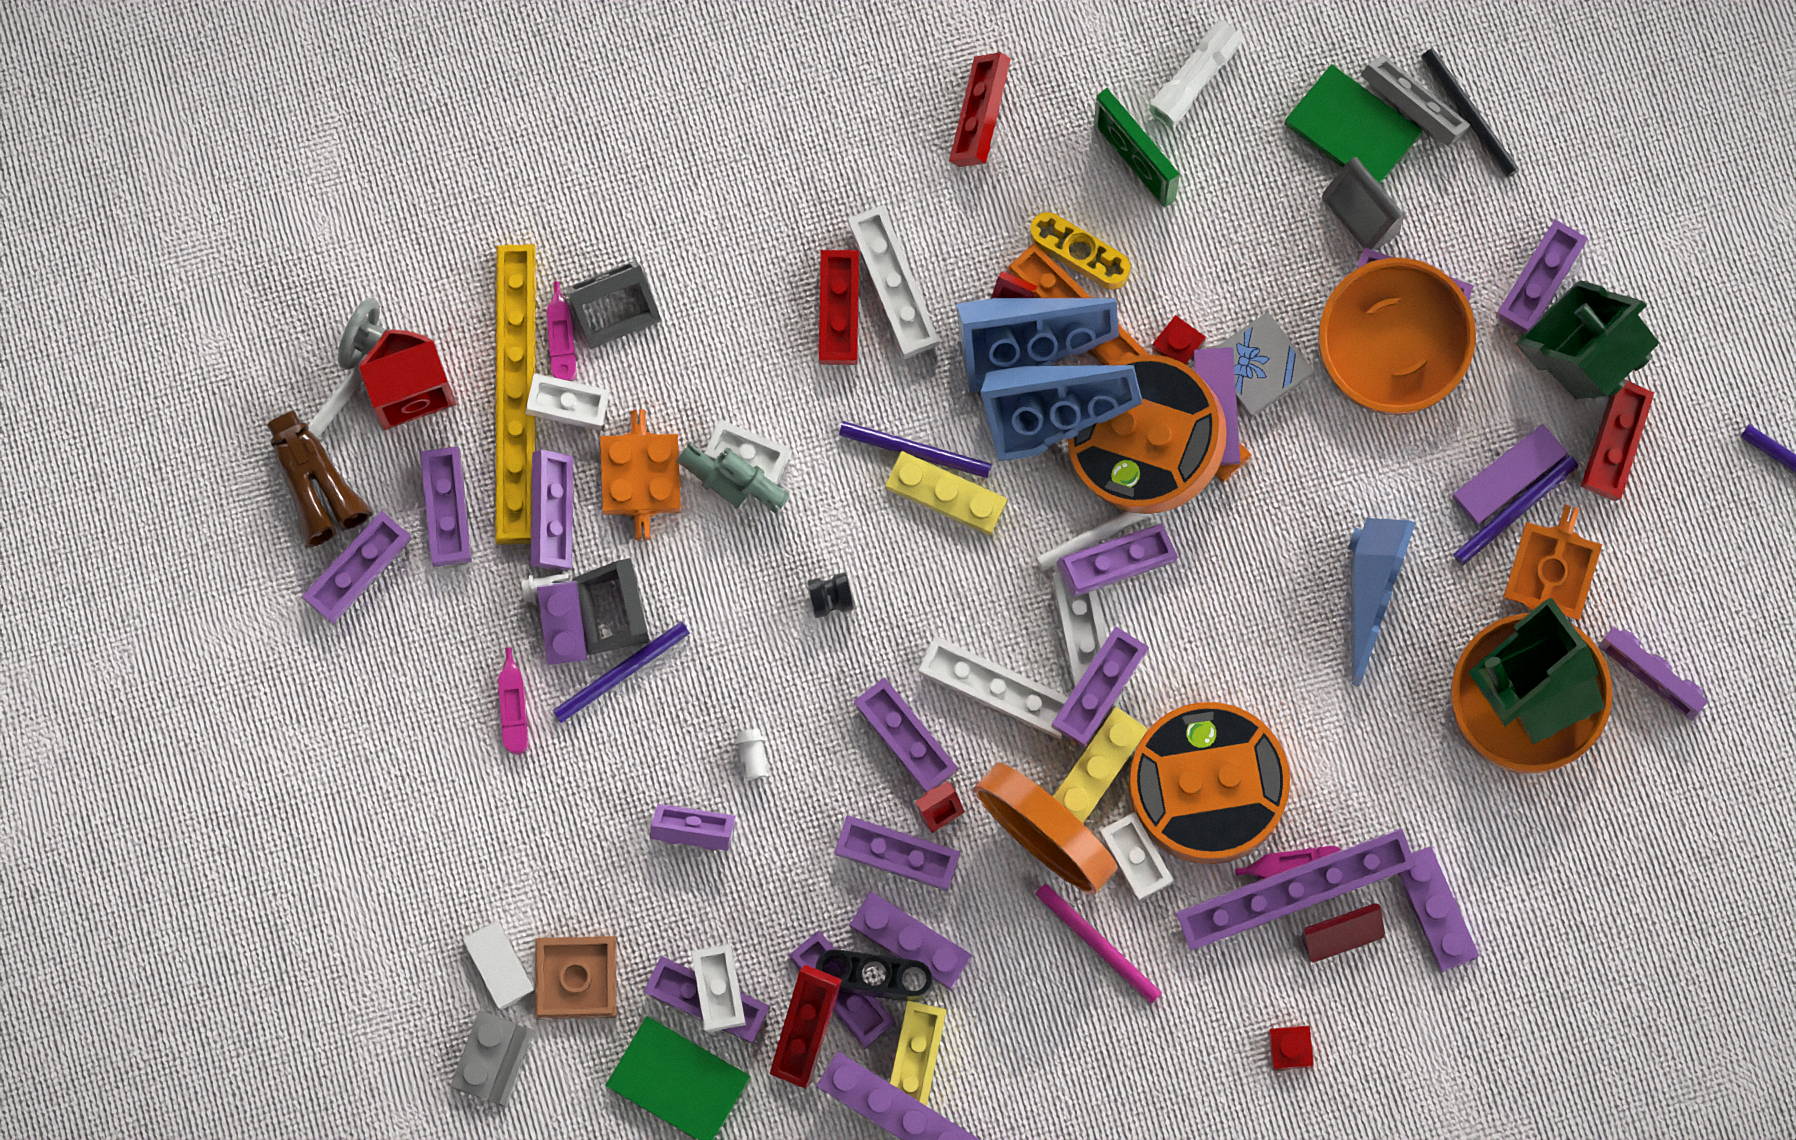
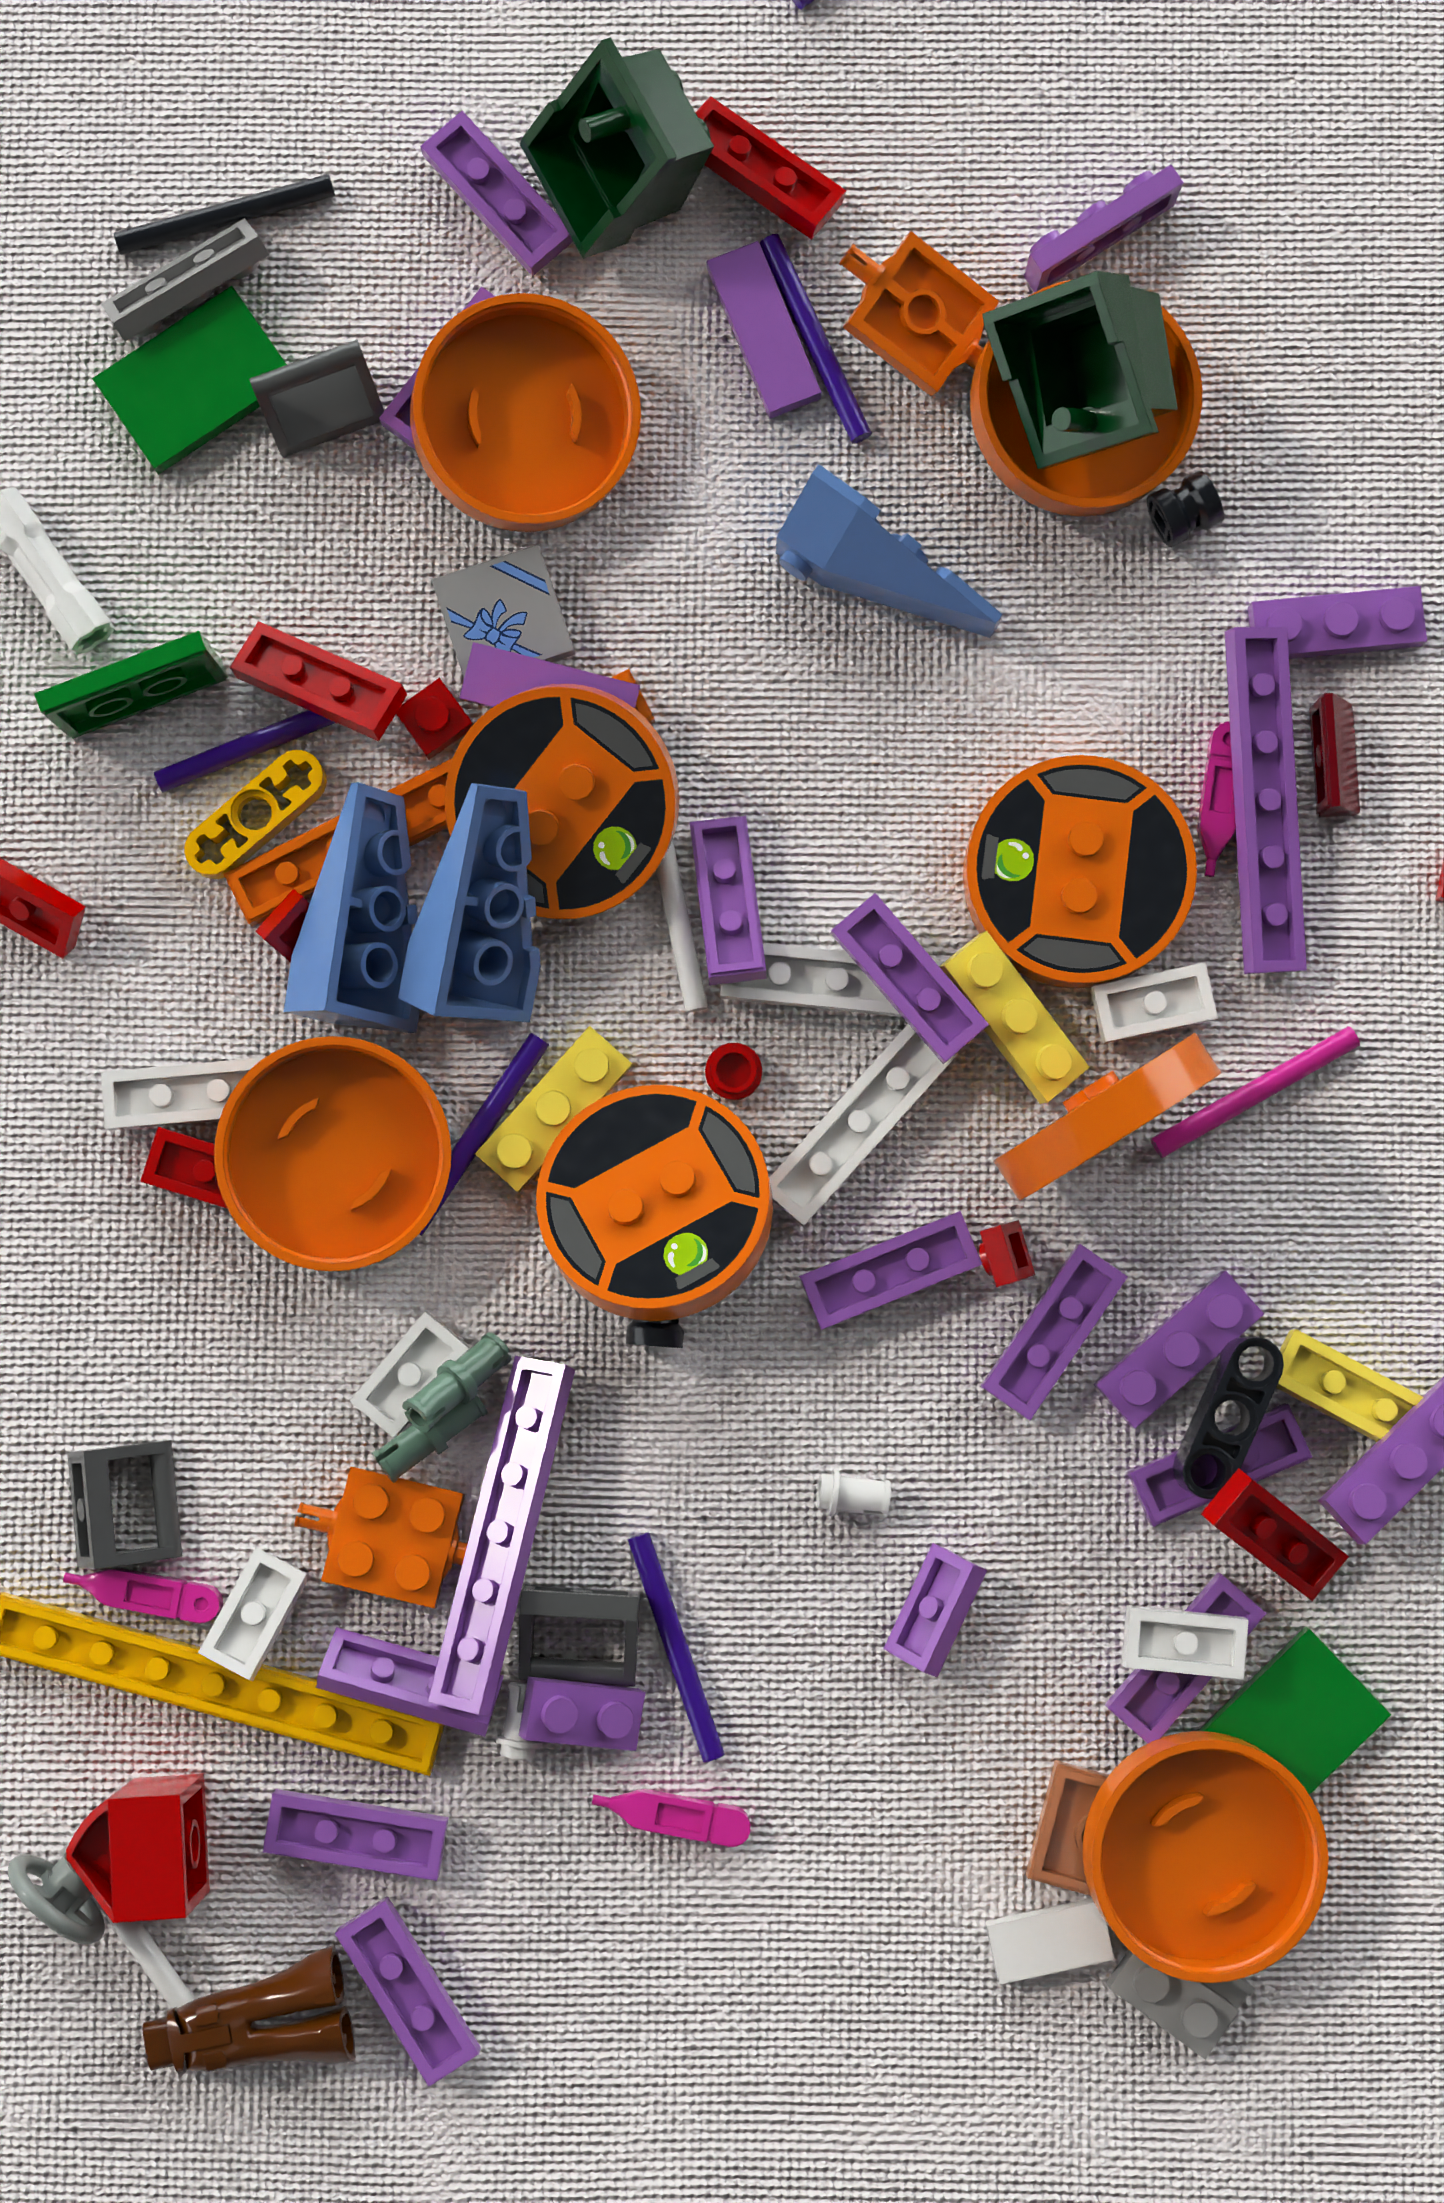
camera: 75 degrees left, 10 degrees up
(583, 1041) = (1205, 1856): none -> orange piece
(662, 536) = (501, 1536): none -> plate
(874, 360) = (332, 1153): none -> orange piece
(903, 568) = (655, 1202): none -> piece
(1006, 599) = (733, 1071): none -> red plate
(1130, 241) = (239, 749): none -> dark purple bar
(1177, 261) = (318, 681): none -> red plate
(1478, 782) = (1183, 509): none -> black wheel

